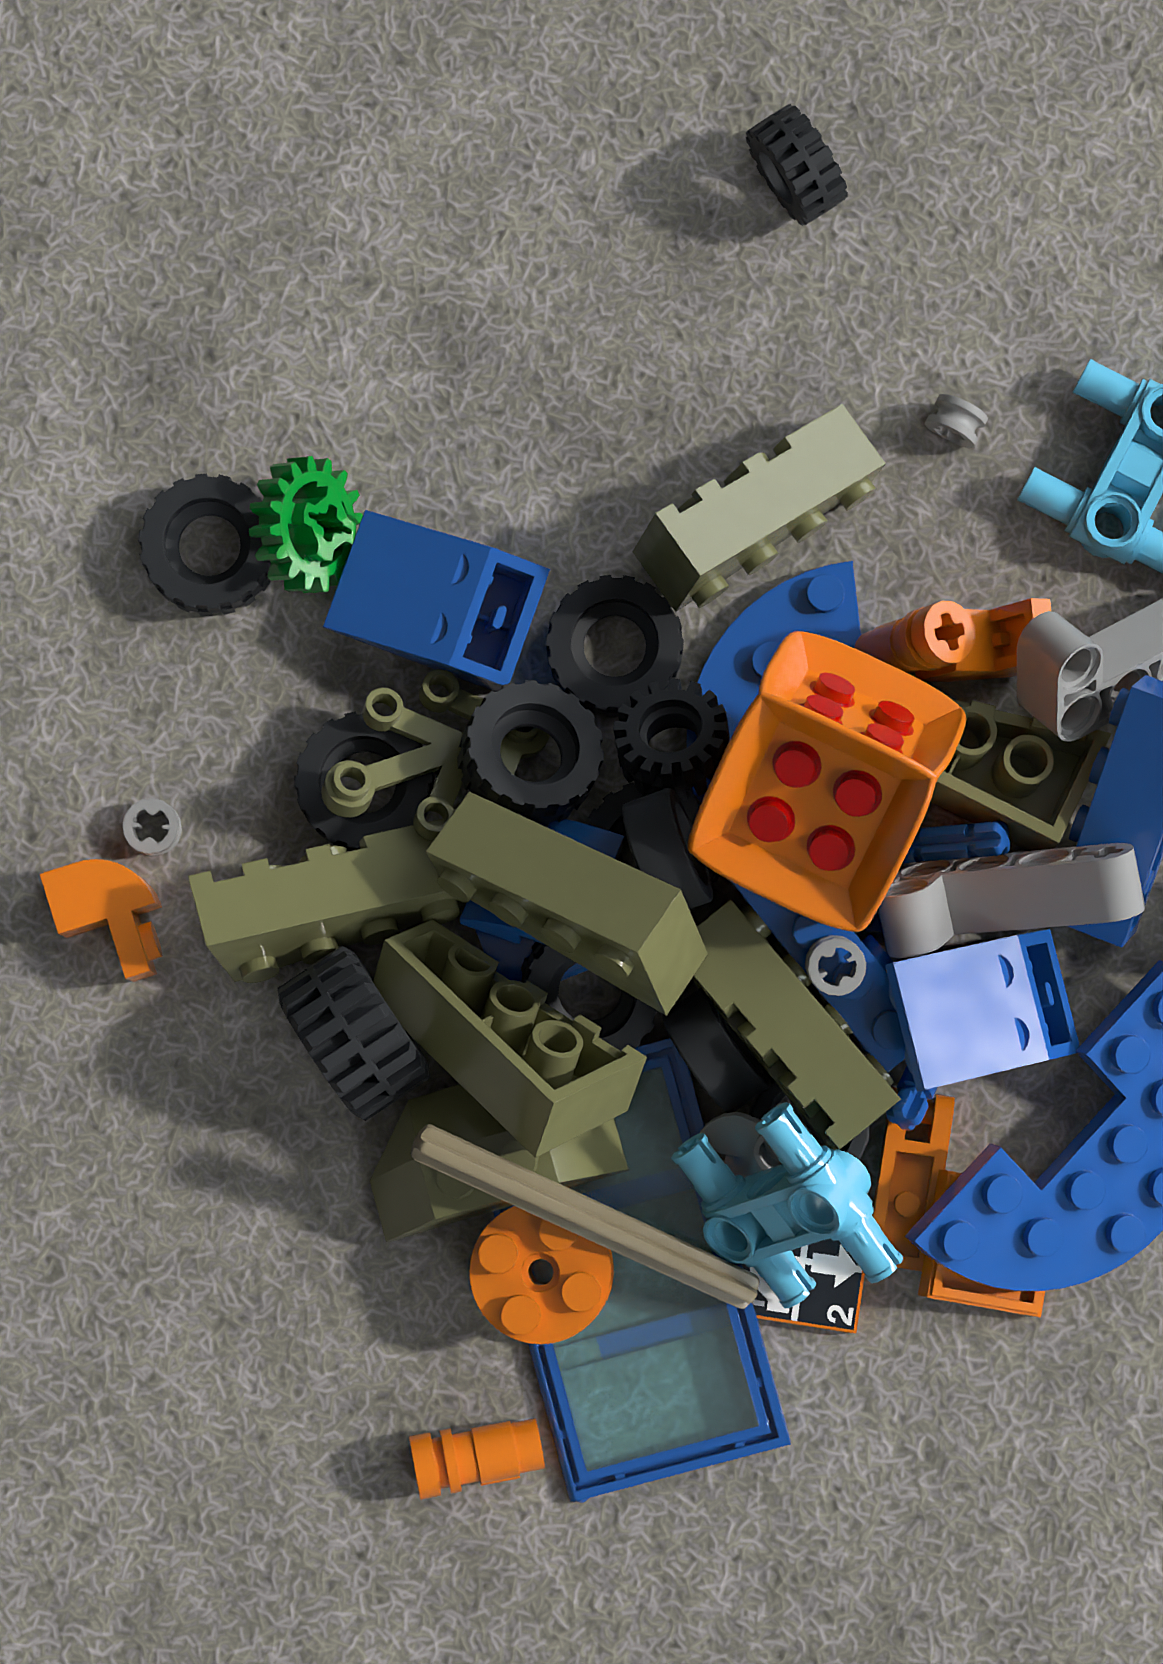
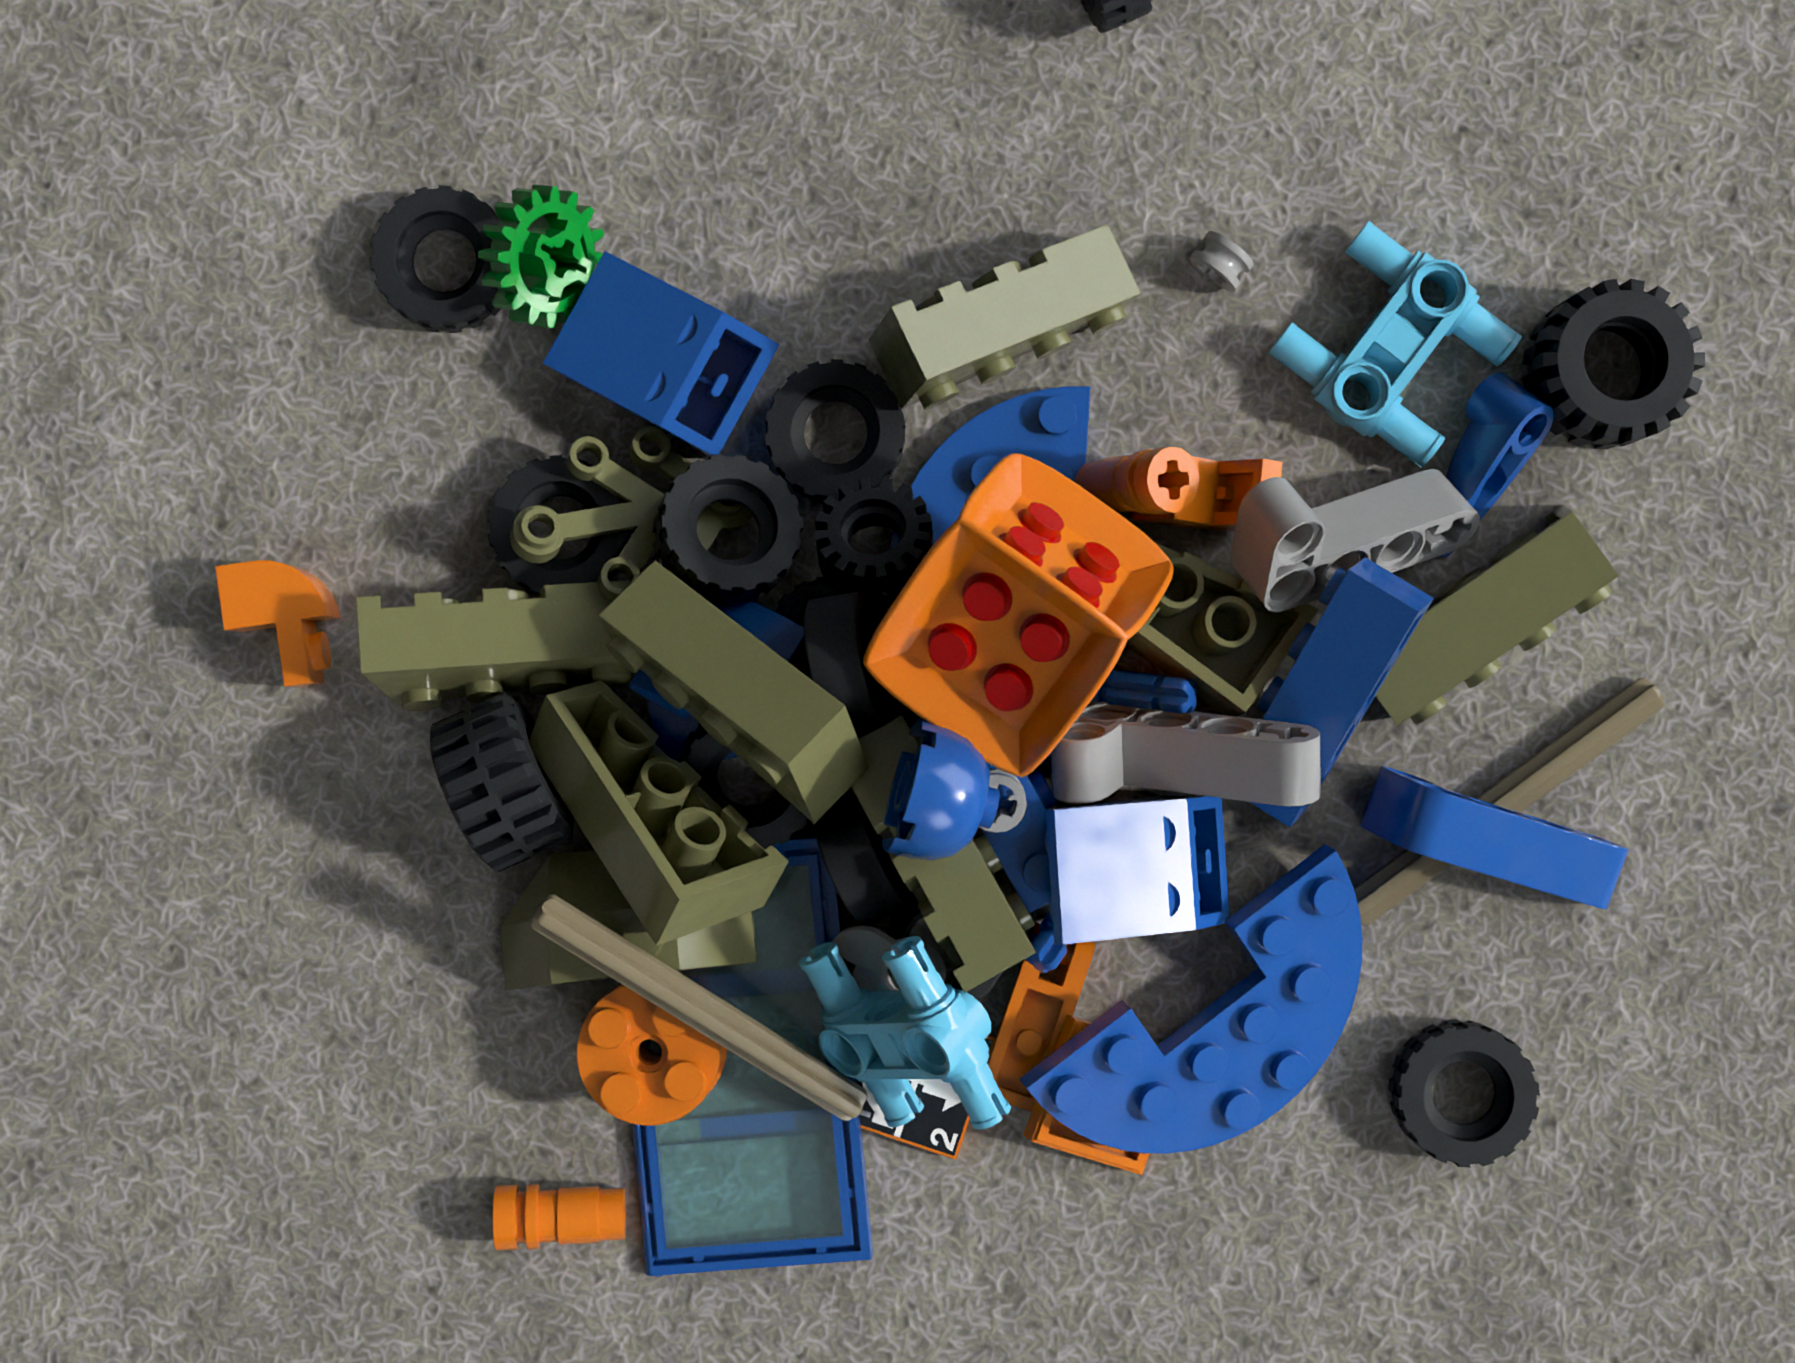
camera: 10 degrees right, 5 degrees up
(155, 808) = (336, 554): light grey bush -> none
(781, 964) = (938, 796): none -> blue cylinder

